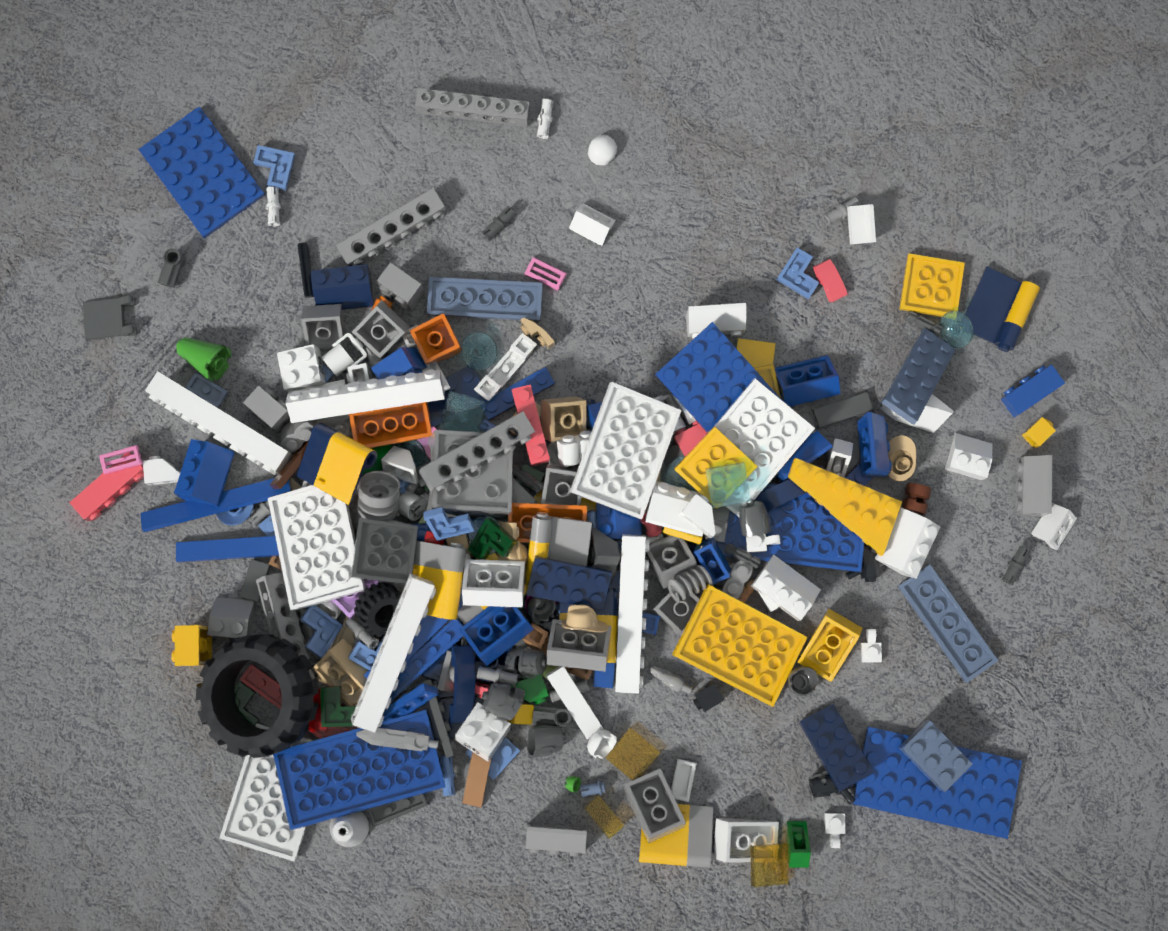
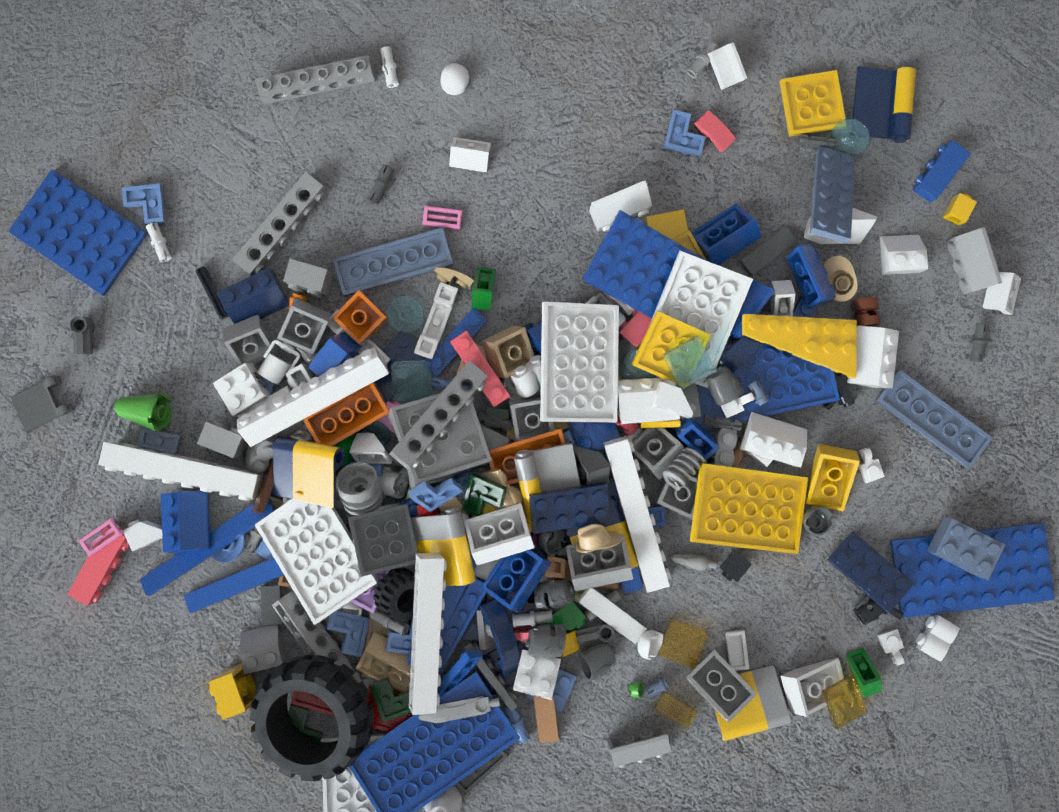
camera: 20 degrees left, 5 degrees up
(560, 352) = (483, 288): none -> green slope
(786, 538) = (758, 393): none -> sand blue pin
(880, 834) = (937, 637): none -> white brick

